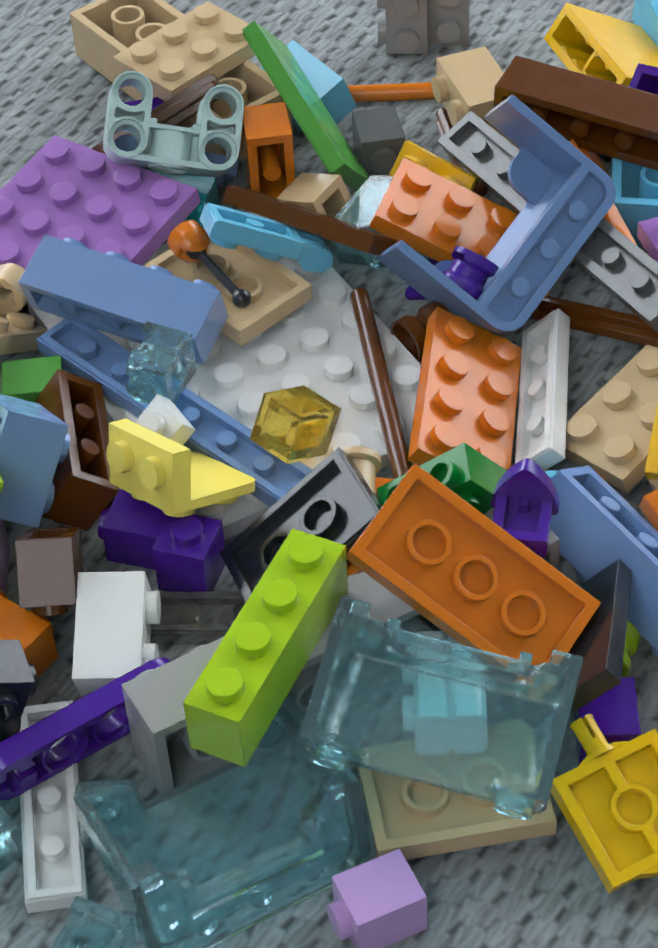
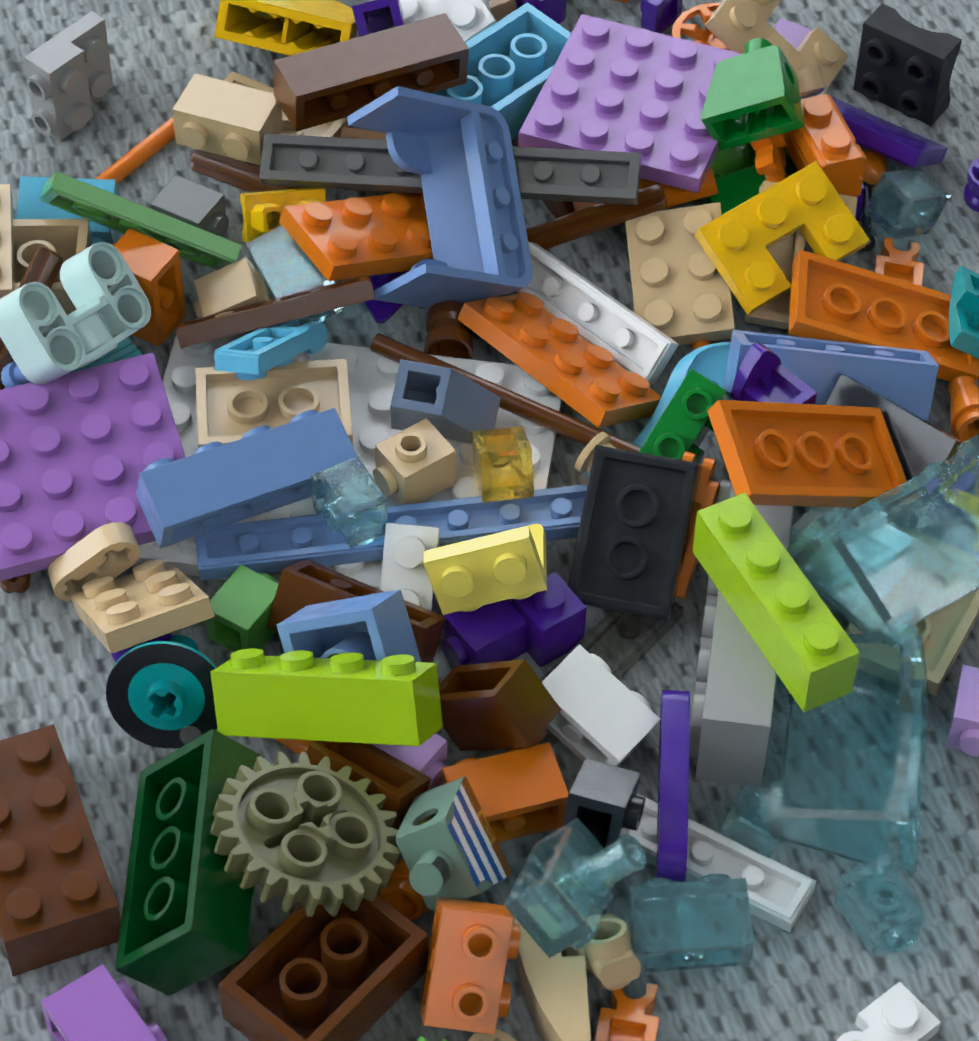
camera: 55 degrees left, 5 degrees up
(191, 245) = (229, 397): hinge -> none
(244, 377) = (414, 464): none -> tan brick
(318, 354) = (444, 398): none -> sand blue slope
(470, 271) = (459, 259): dark purple wheel -> none

